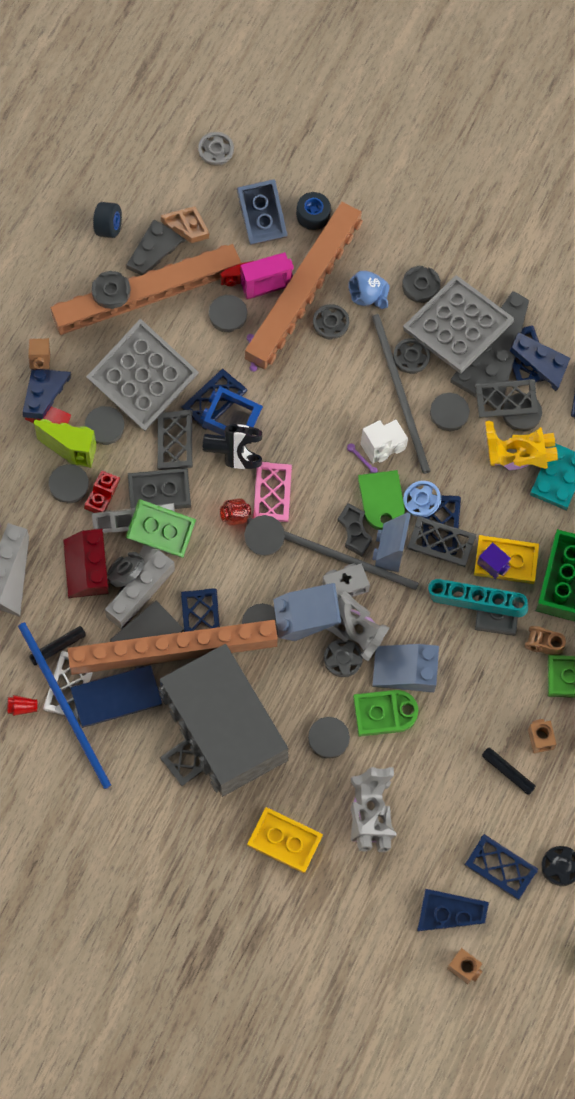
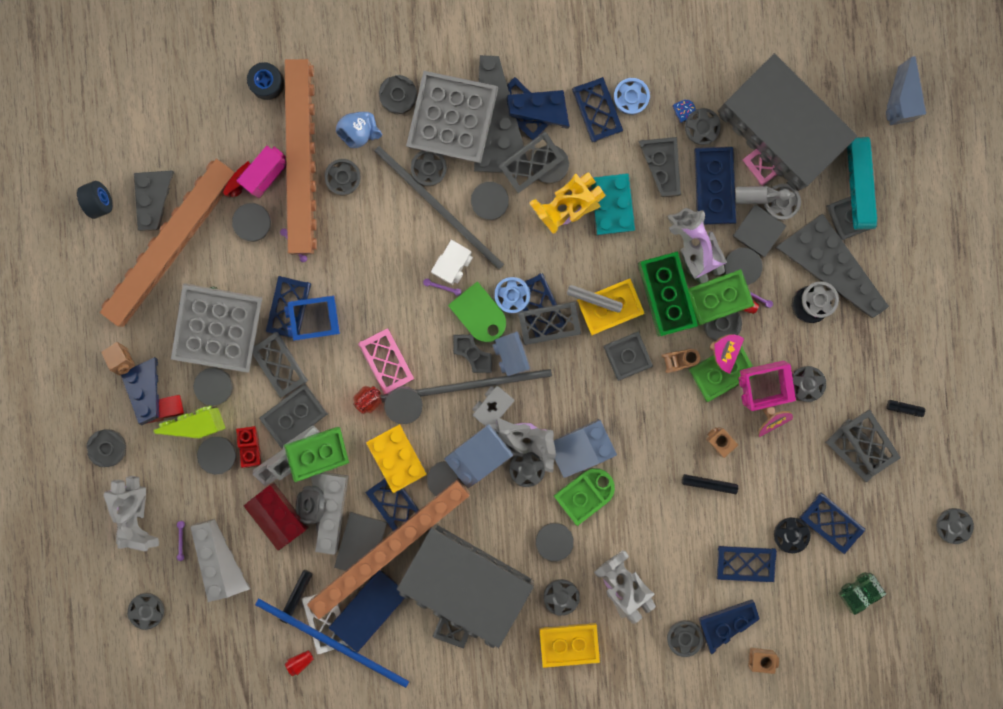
camera: 25 degrees left, 20 degrees up
(111, 289) = (140, 266): dark grey tile -> none
(187, 224) = (165, 160): medium nougat wing -> none
(216, 148) = (144, 69): light grey wheel -> none
(228, 577) = (396, 458): none -> yellow plate
(234, 446) = (333, 345): black connector -> none
(261, 211) = (221, 108): sand blue slope -> none
(304, 793) = (561, 597): none -> dark grey wheel
(400, 902) = (684, 638): none -> dark grey wheel
(470, 591) = (600, 364): teal beam -> none
(492, 537) = (594, 298): none -> light grey axle
(494, 561) = (604, 319): dark purple brick -> none

